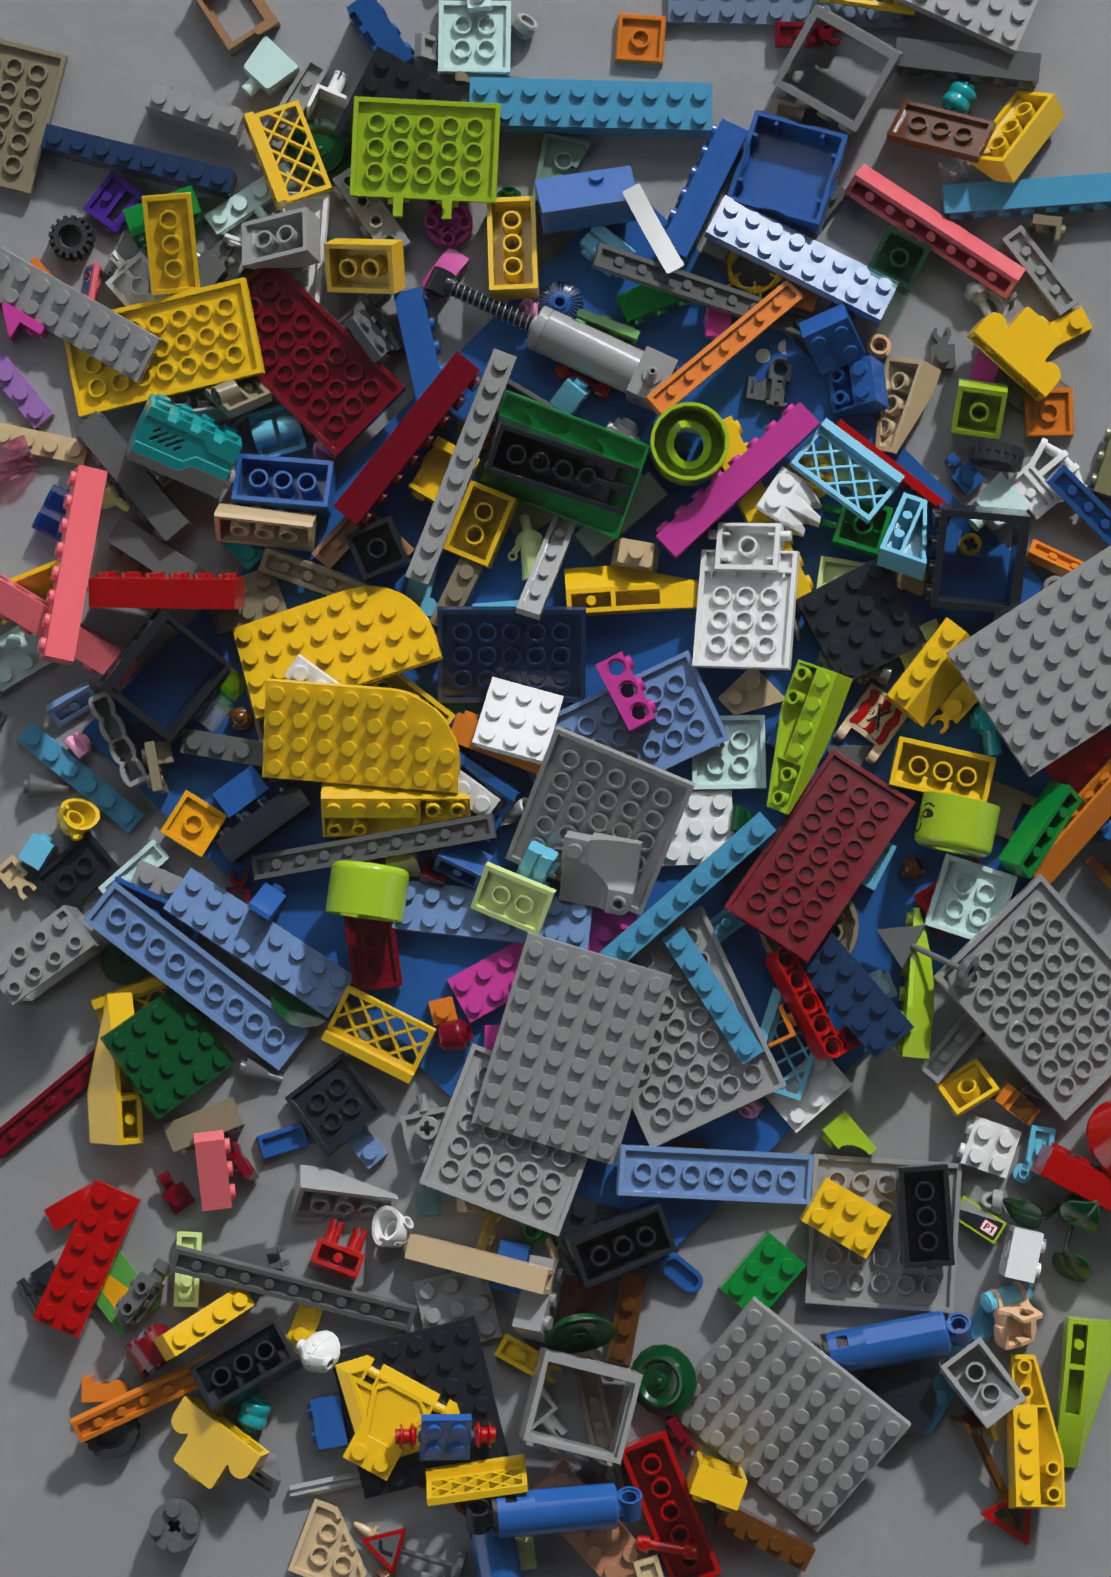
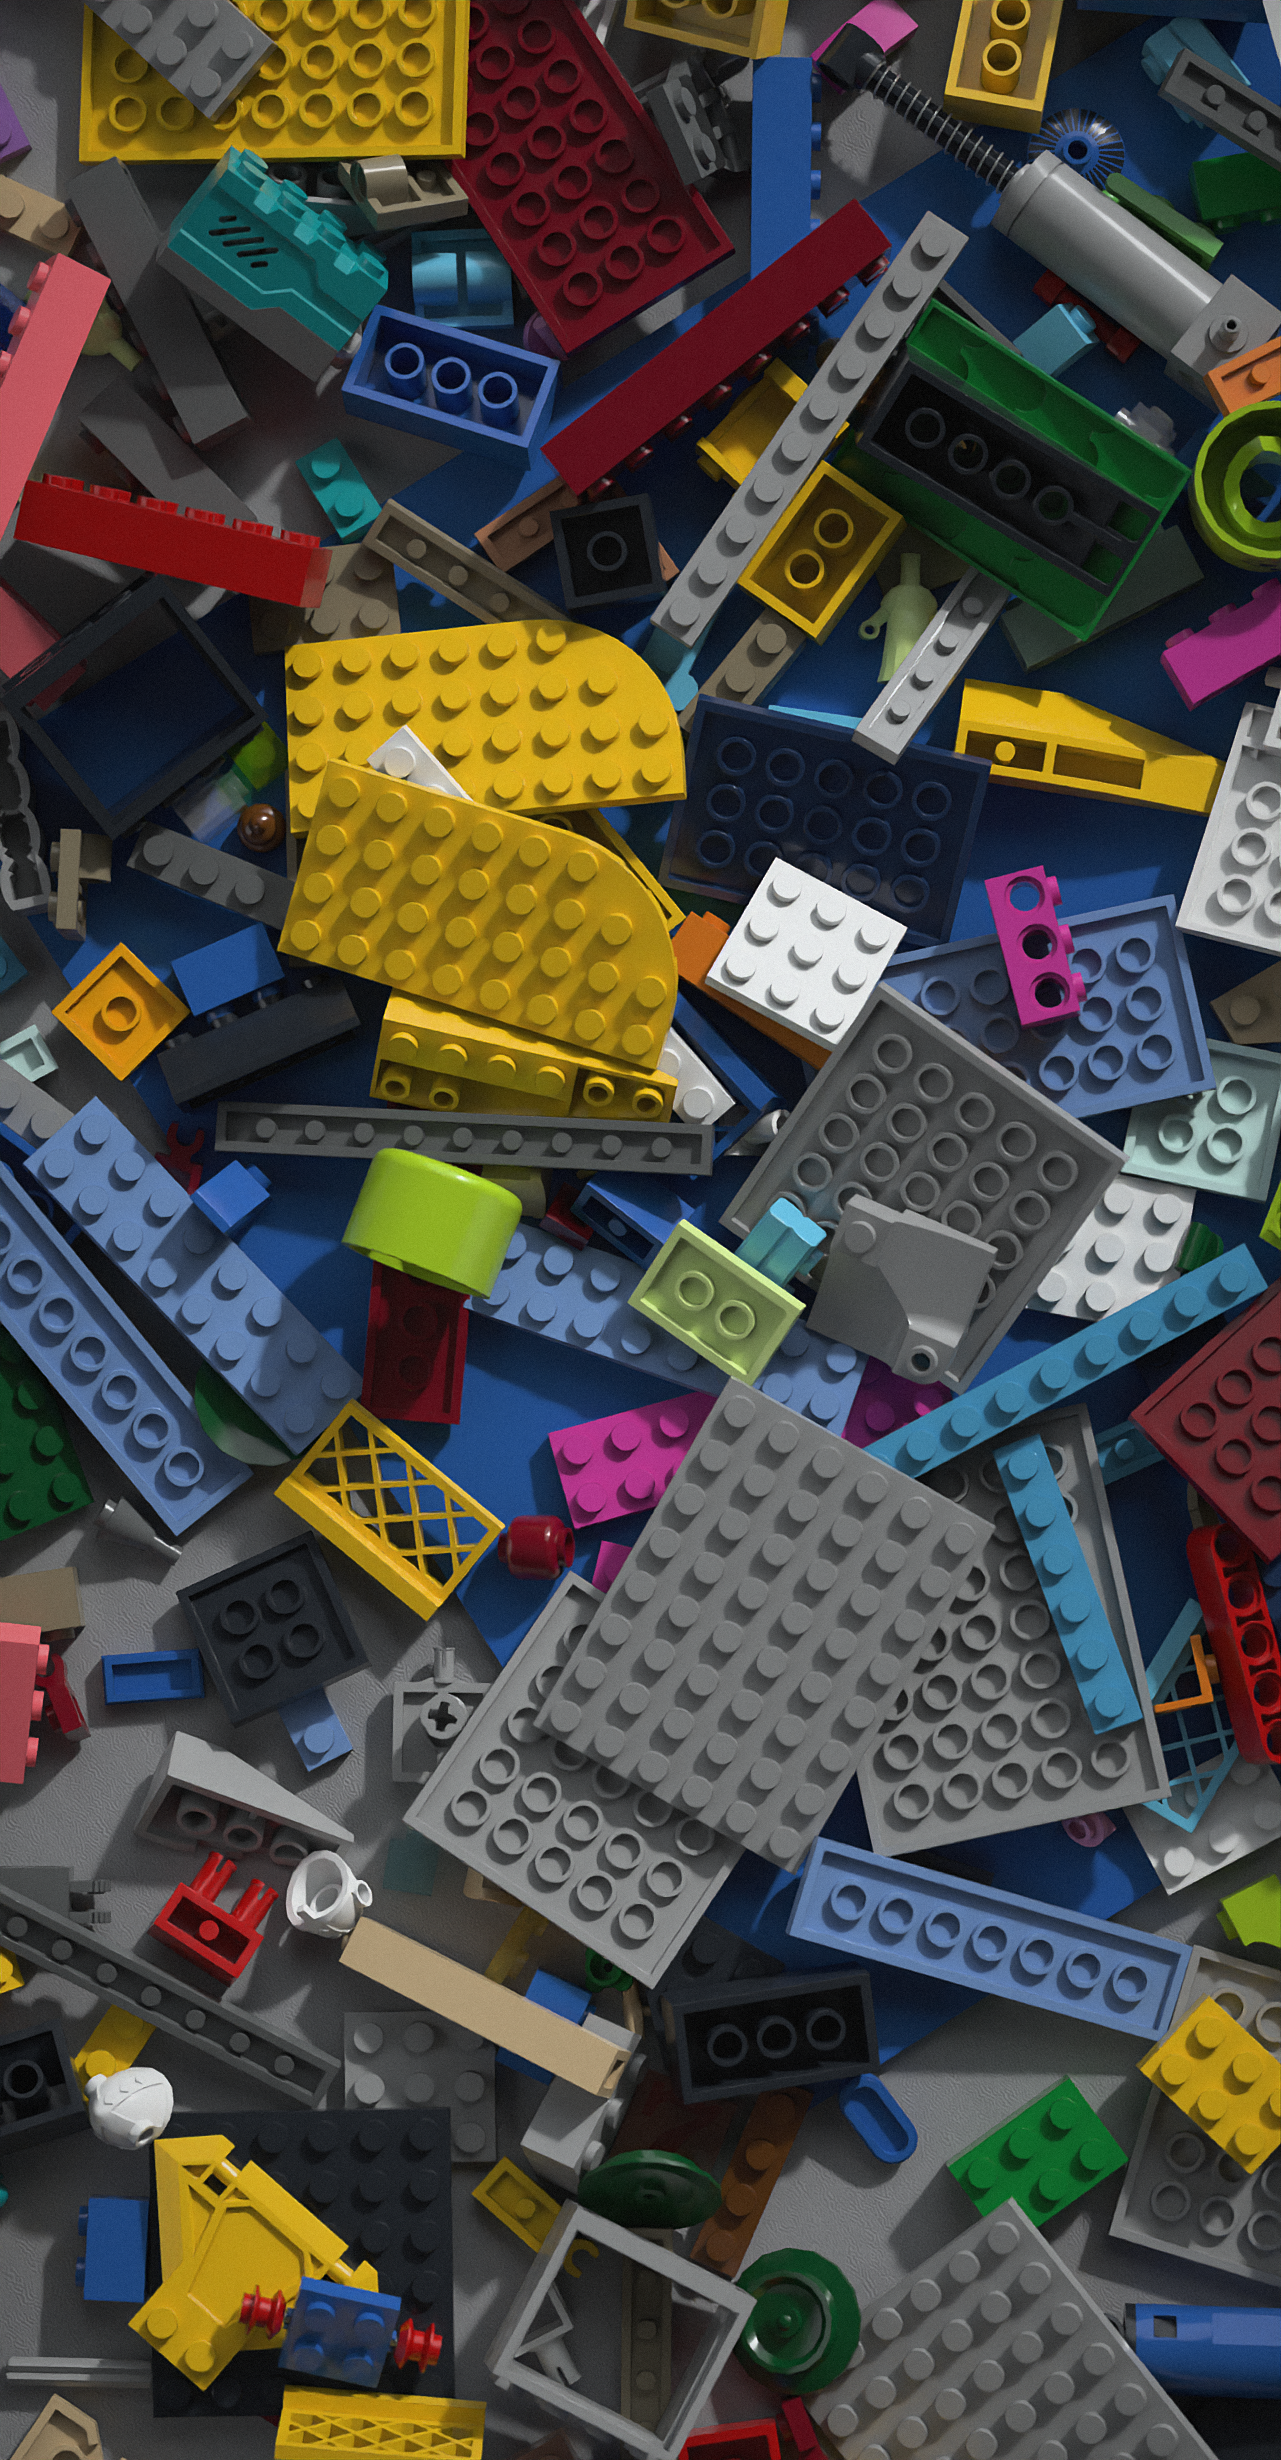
camera: 15 degrees right, 0 degrees up
(265, 527) = (396, 461): tan slope -> none
(442, 1010) = (526, 1492): orange plate -> none
(529, 306) = (1015, 146): bright pink plate -> none
(635, 555) = (1113, 682): tan torso -> none

